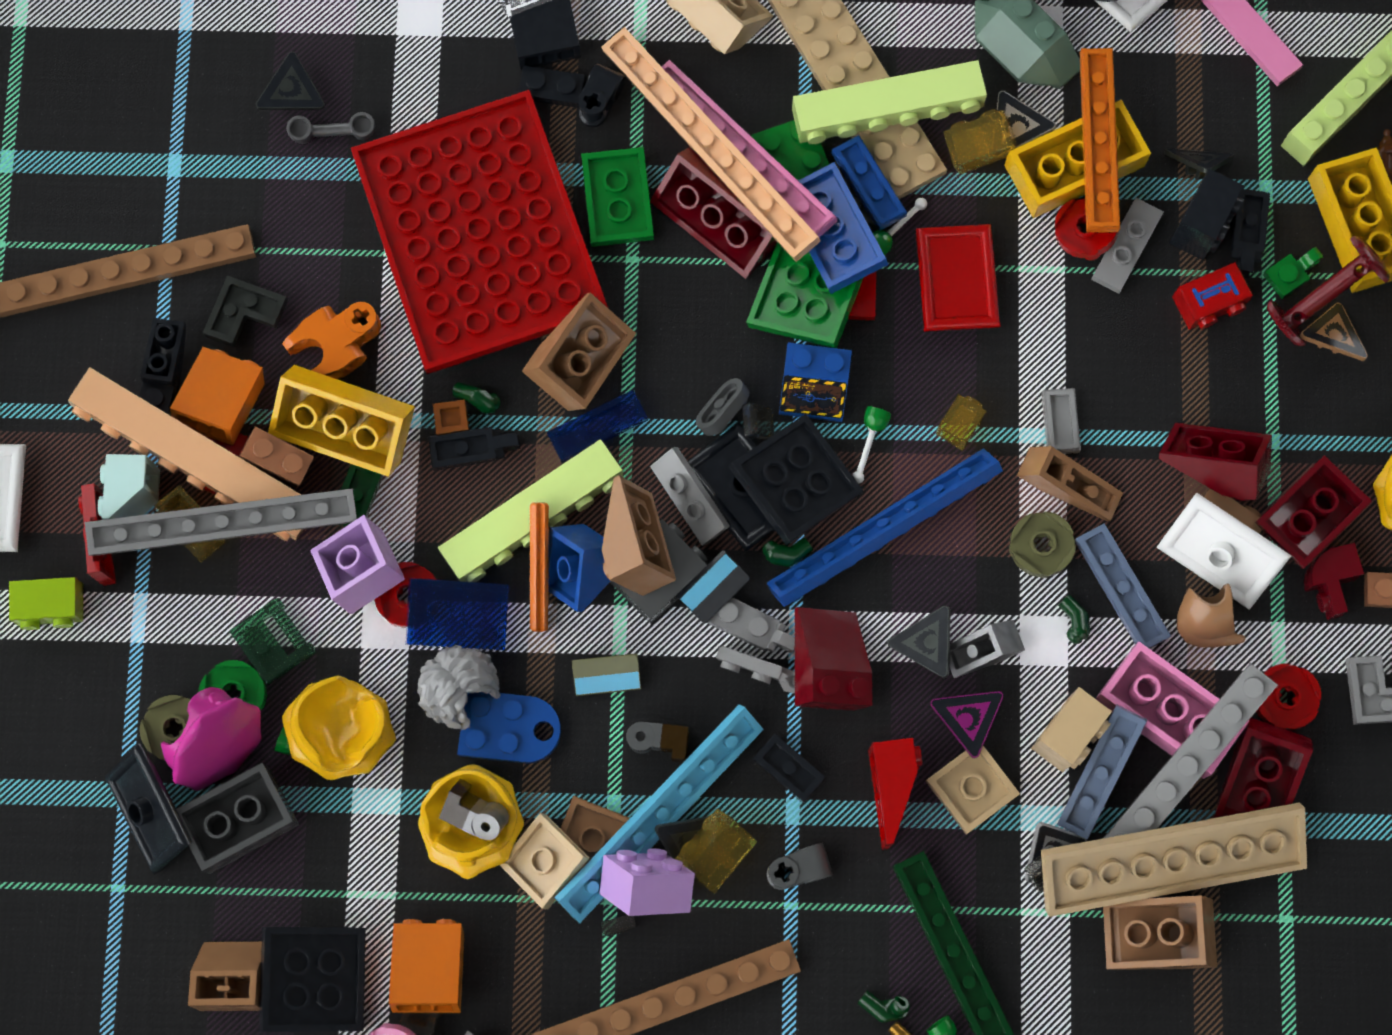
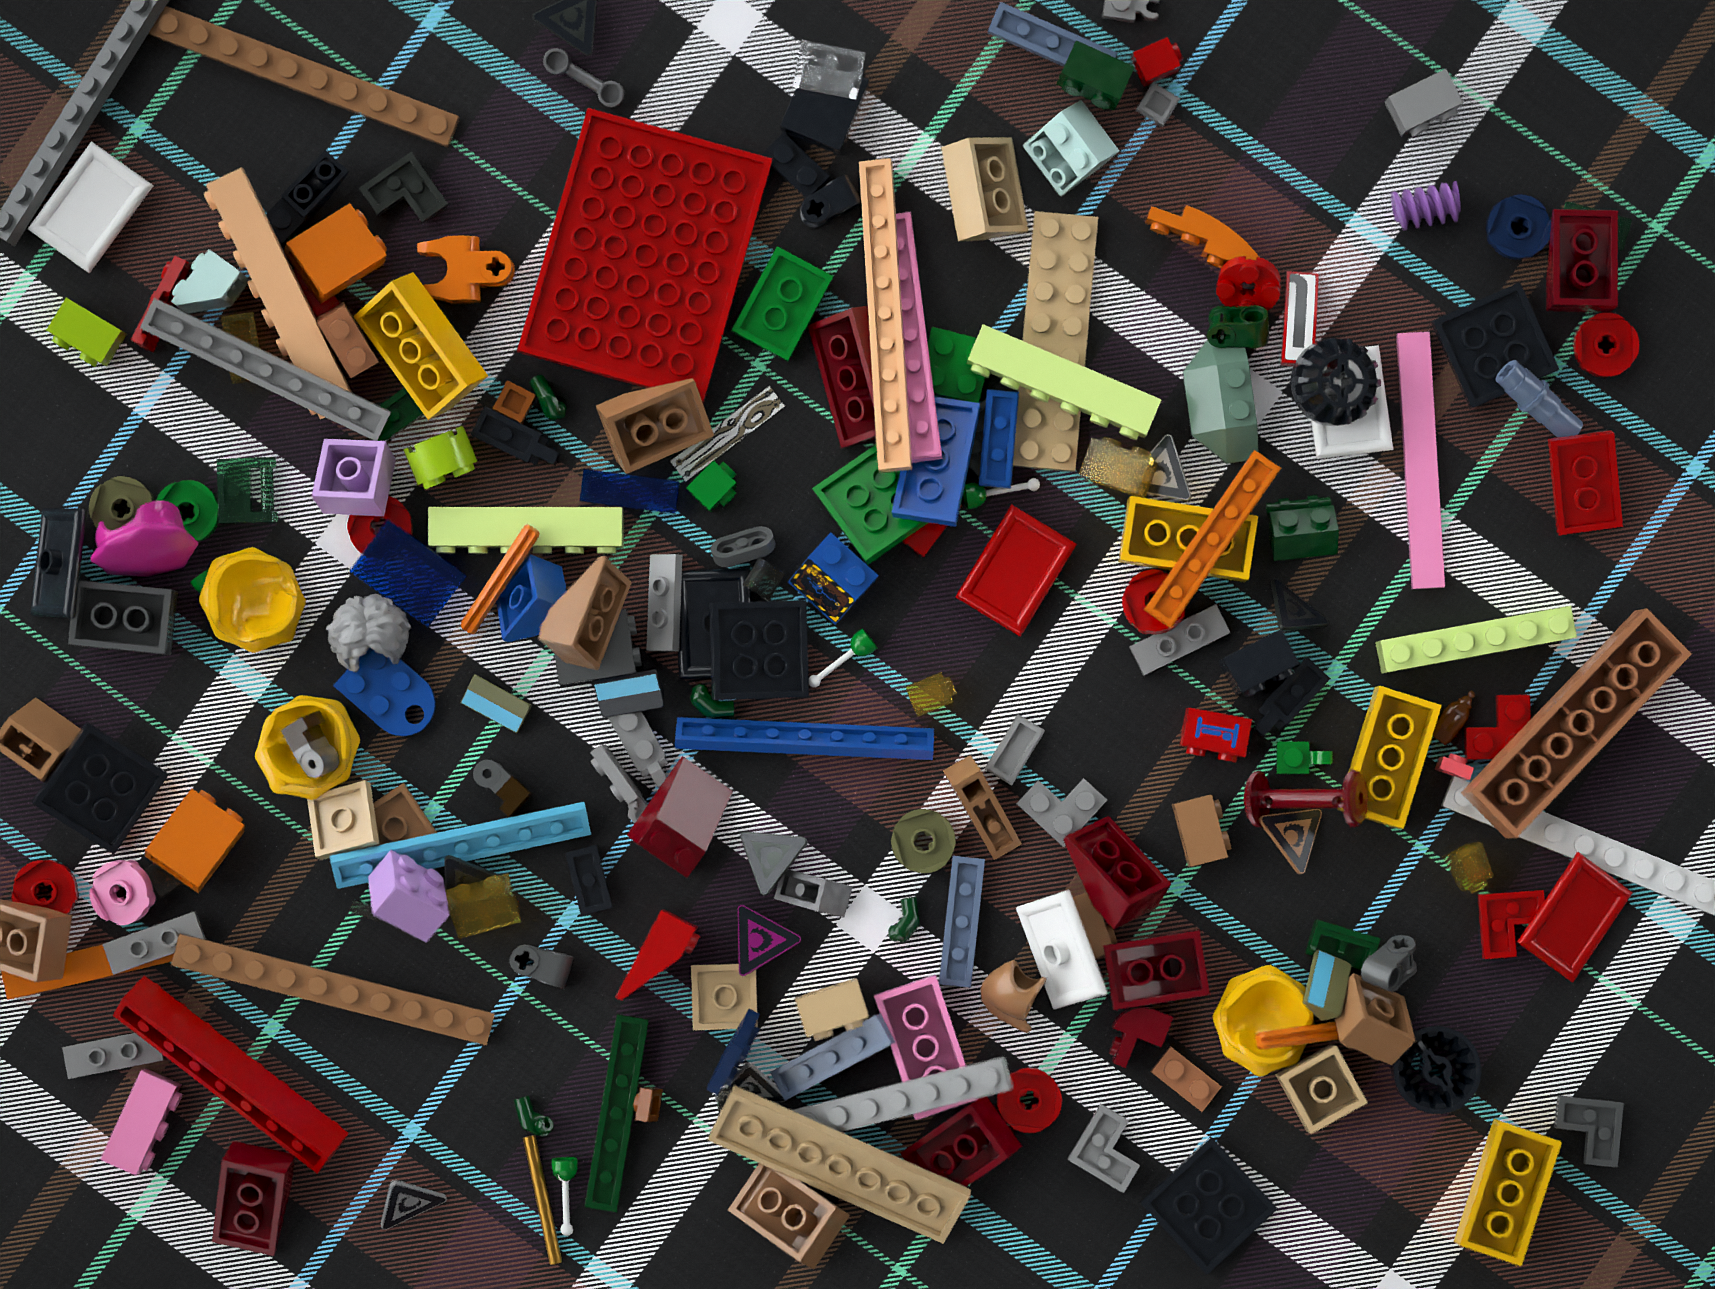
camera: 30 degrees right, 10 degrees up
(420, 499) = (441, 456): none -> lime brick
(646, 328) = (728, 433): none -> sticker
(663, 375) = (714, 485): none -> green brick
(974, 924) = (648, 1104): none -> dark orange plate
(1018, 820) = (735, 1052): none -> dark blue plate
(1137, 450) = (1058, 816): none -> light grey plate
(1160, 92) = (1302, 528): none -> dark green brick
(1259, 380) = (1201, 830): none -> medium nougat brick

